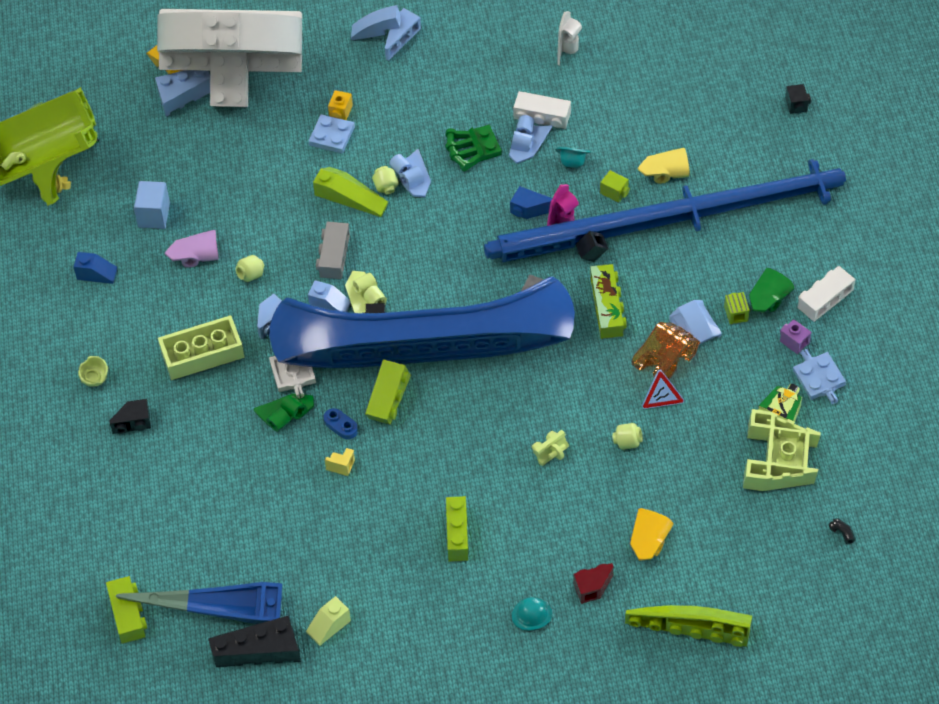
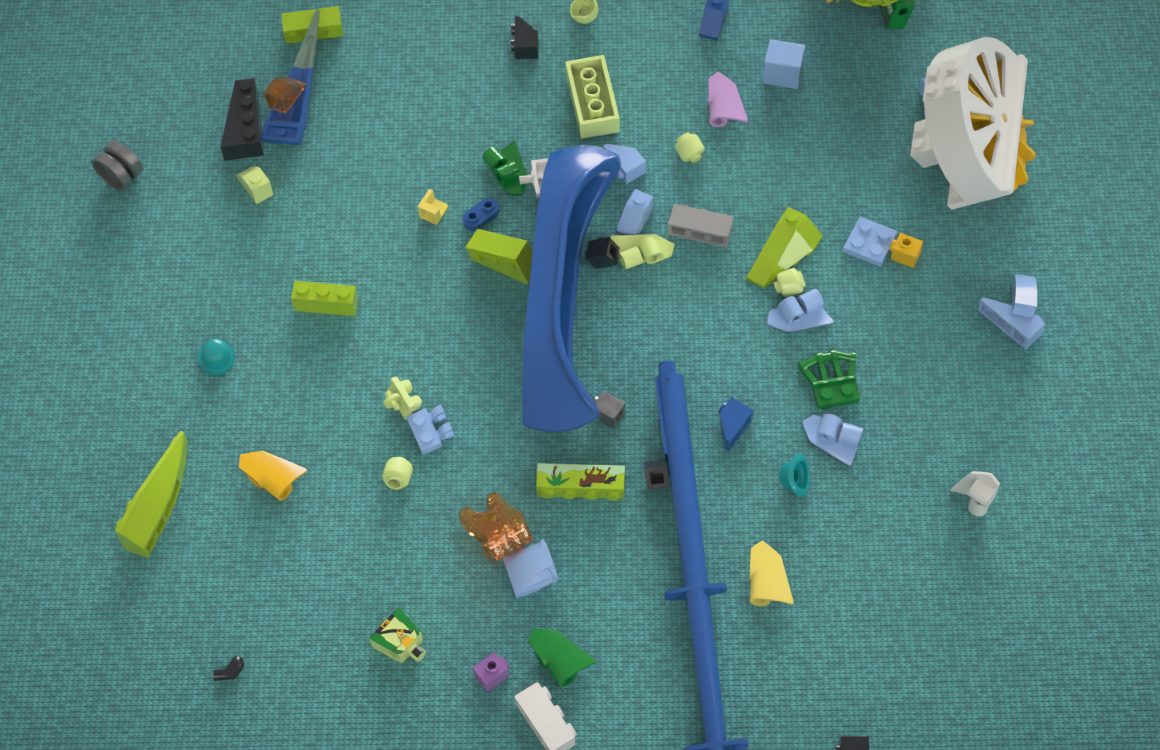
camera: 100 degrees right, 5 degrees up
(227, 602) = (283, 93): none -> clear orange slope
(543, 109) = (872, 455): white brick -> none
(562, 206) = (711, 445): dark pink panel -> none
(579, 427) = (424, 431): none -> light blue plate
(592, 582) = (230, 411): dark red slope -> none
(614, 186) = (744, 515): lime brick -> none
(661, 393) = (444, 514): piece -> none
(736, 308) = (545, 615): lime brick -> none
(785, 454) = (336, 624): yellowish green wedge -> none
(819, 376) = (434, 689): light blue plate -> none

